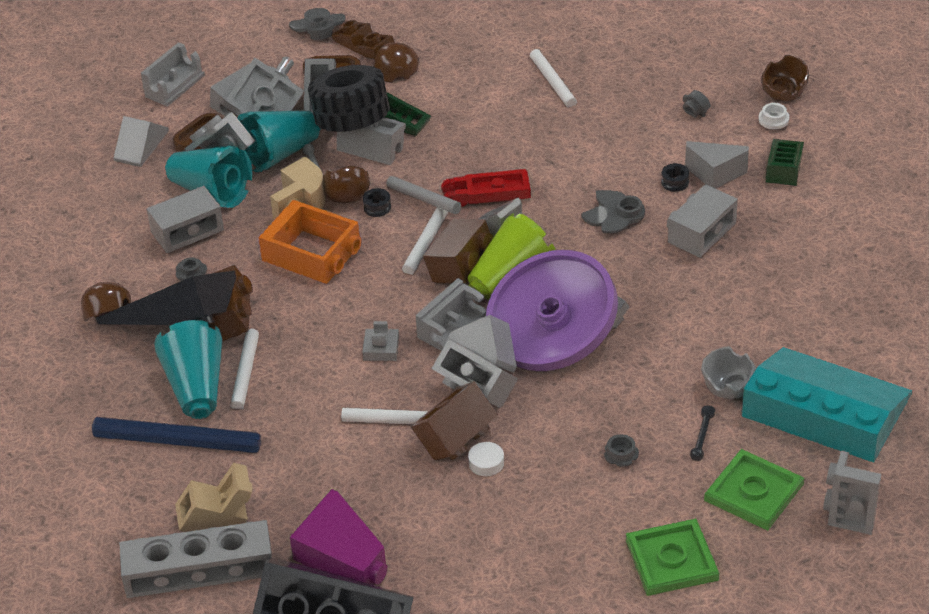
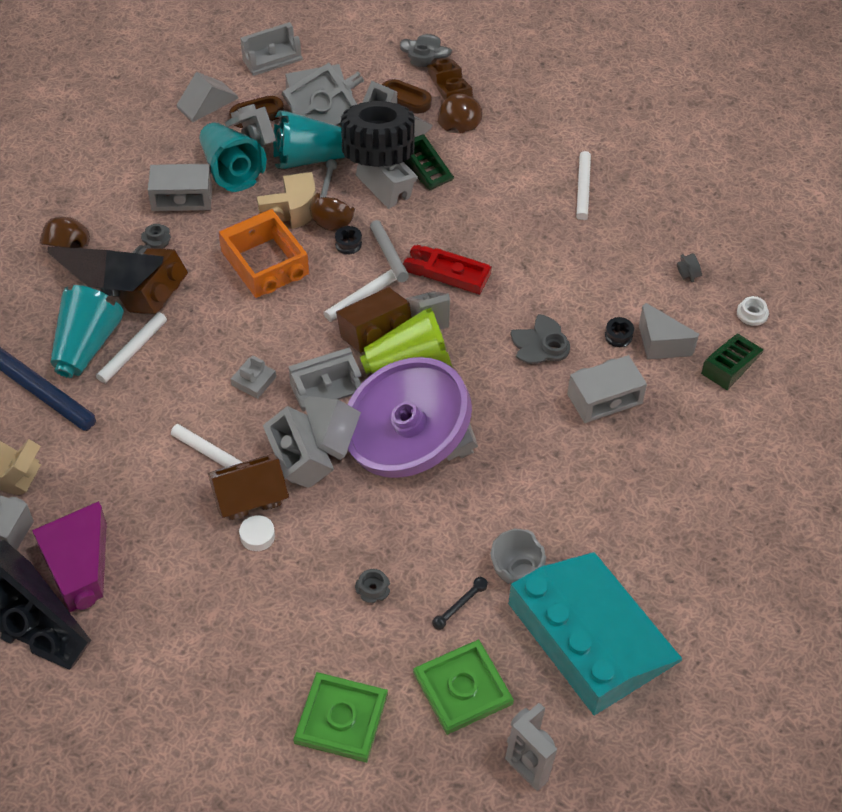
camera: 25 degrees right, 10 degrees up
(785, 78) = (787, 278): reddish brown hair -> none

